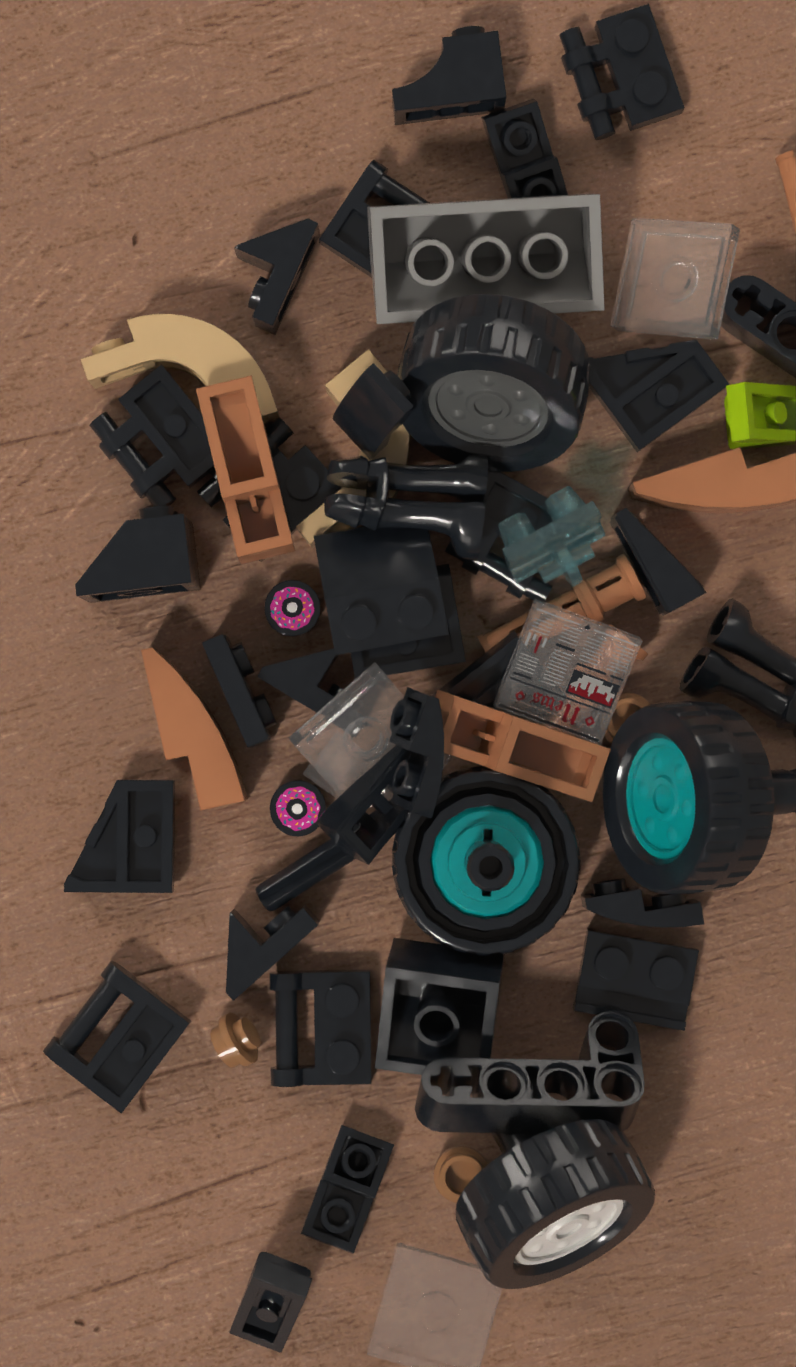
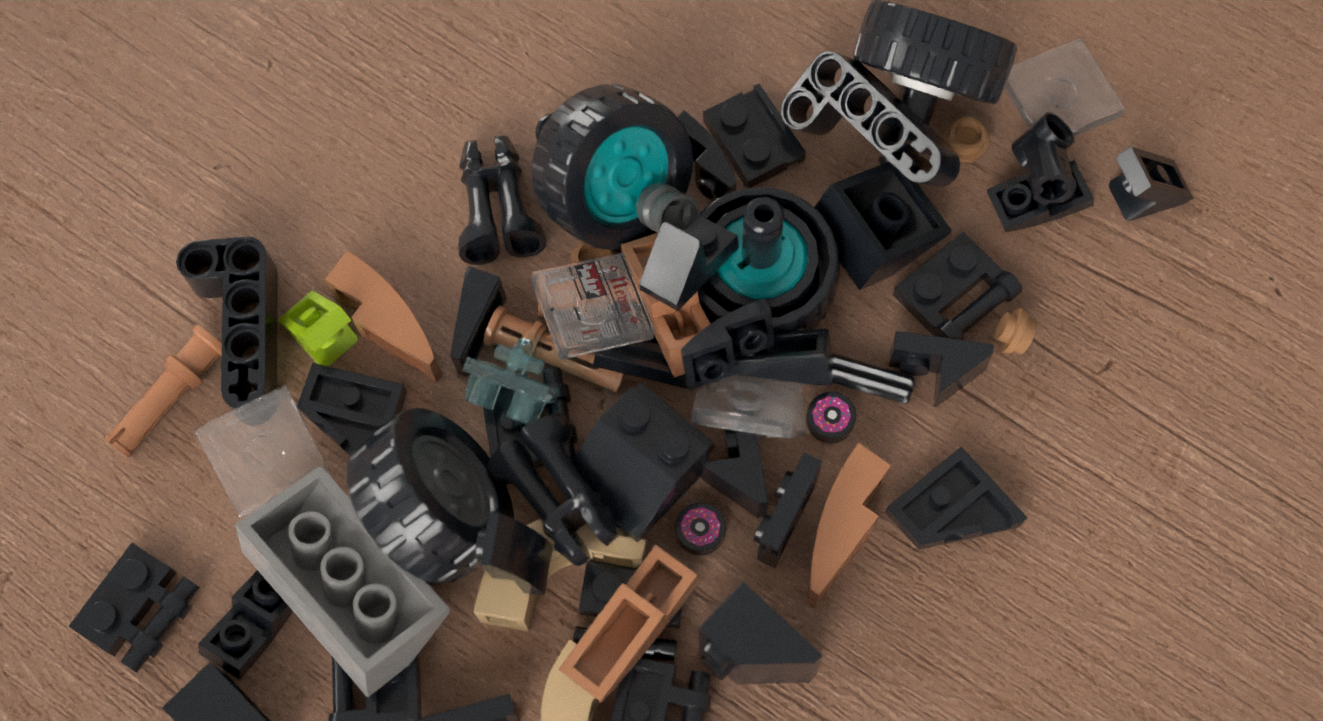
camera: 125 degrees left, 20 degrees down
(132, 1047) = (1085, 392): black plate -> none
(382, 1225) = (1045, 156): none -> black piece
(527, 783) = (685, 260): none -> slope
(599, 812) = (666, 204): none -> dark grey wheel

